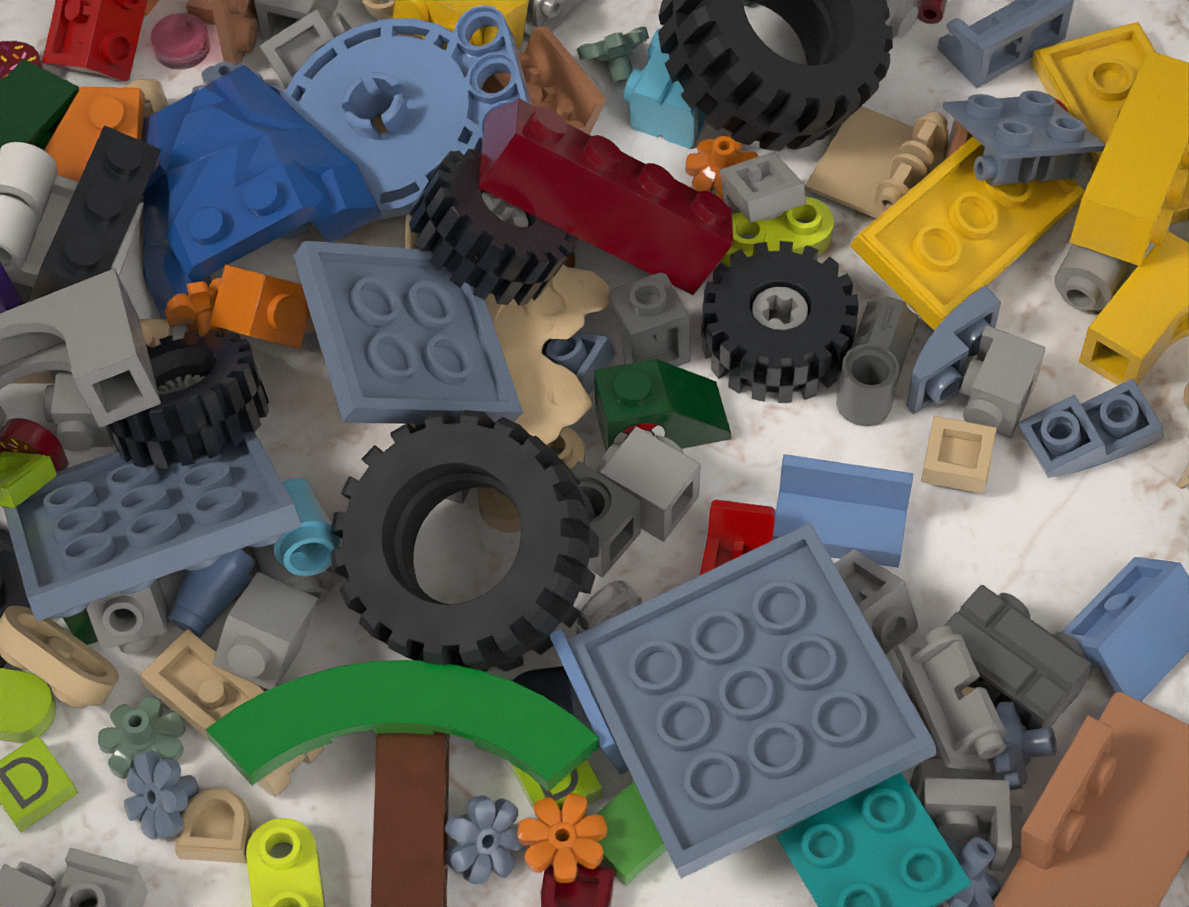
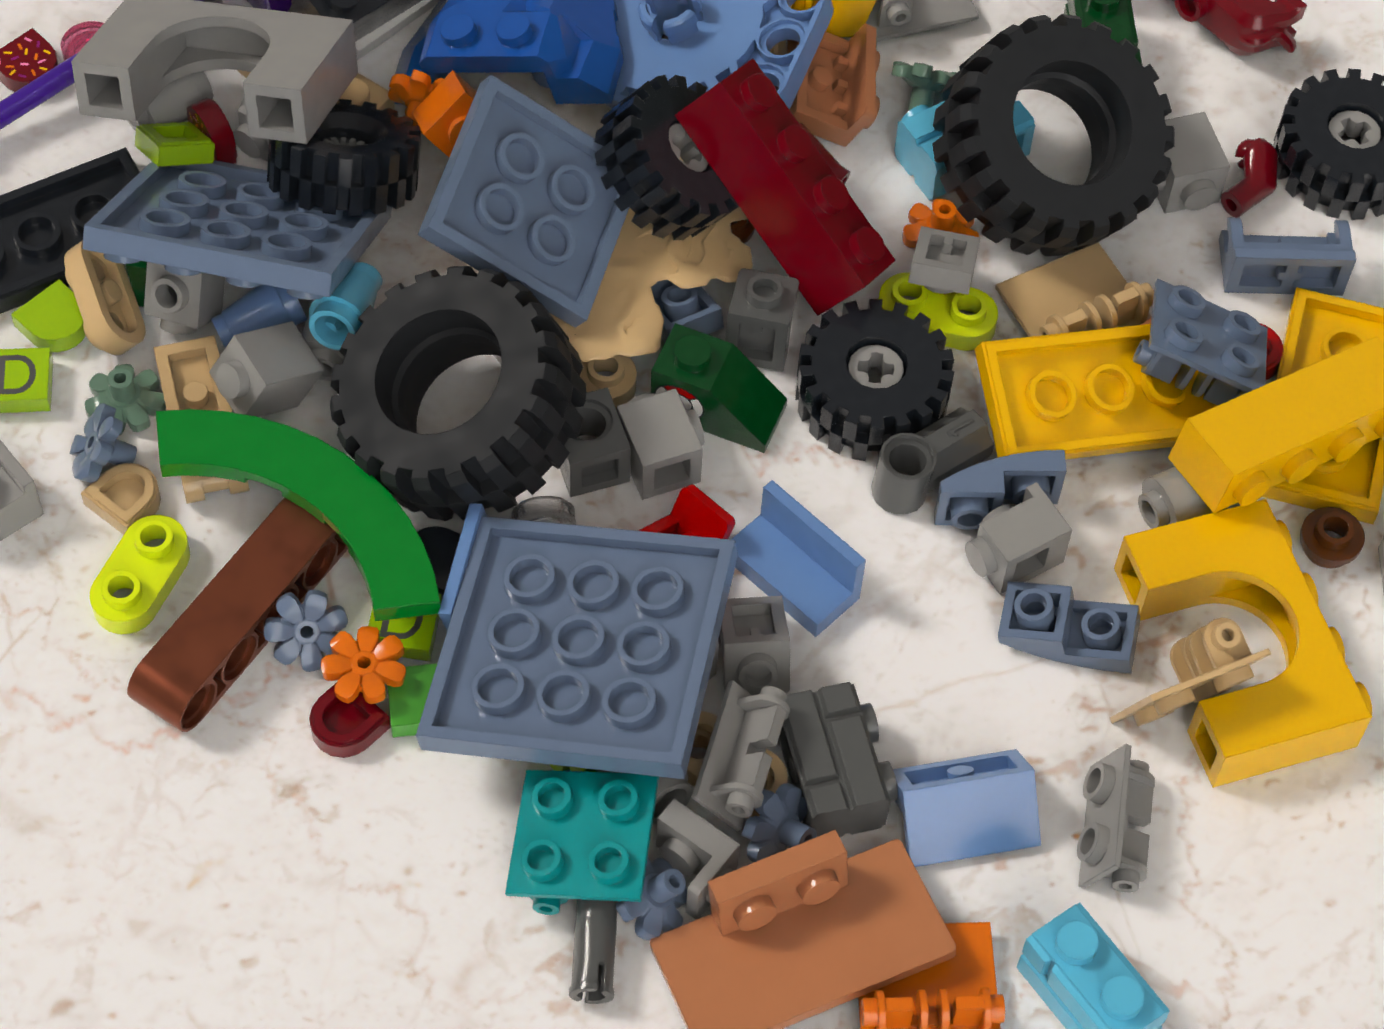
camera: 30 degrees right, 0 degrees up
(958, 454) = (935, 576): tan plate -> none

